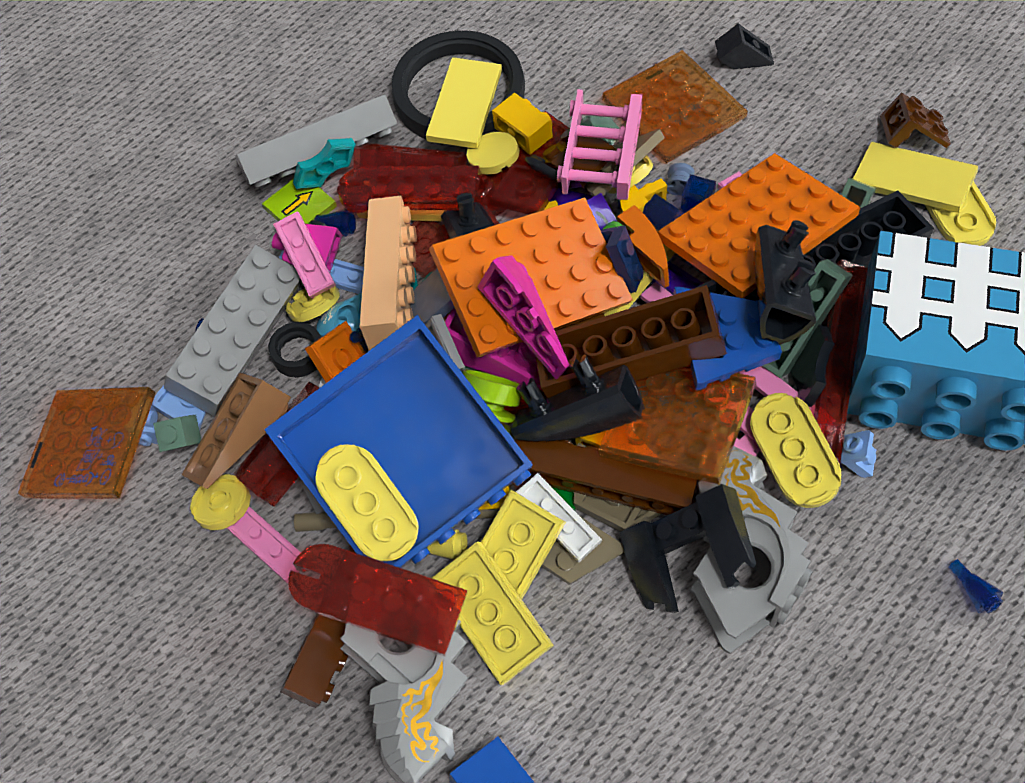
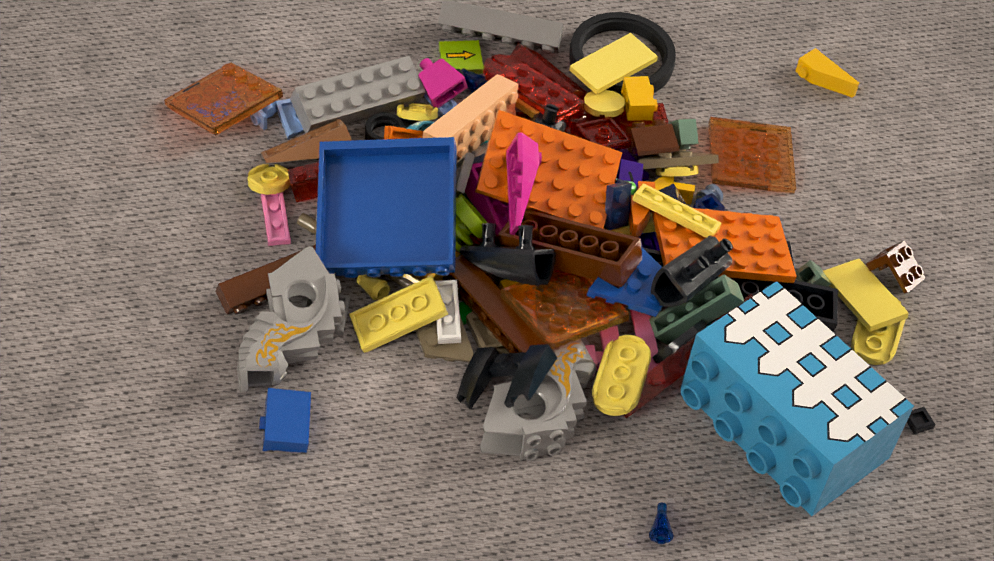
camera: 25 degrees right, 10 degrees down
(177, 433) = (276, 126): sand green brick -> none
(304, 254) = (432, 80): bright pink tile -> none
(314, 171) = (500, 40): teal tile -> none
(366, 502) = (343, 220): light yellow tile -> none
(377, 597) = (306, 266): clear red plate -> none
(495, 614) = (364, 333): light yellow tile -> none
(538, 165) = (623, 126): black piece -> none
(623, 156) = (674, 152): bright pink fence -> none
(692, 223) = (676, 211): none -> light yellow tile
(742, 49) = (830, 152): black slope -> none
(859, 453) = (662, 409): light blue bracket -> none

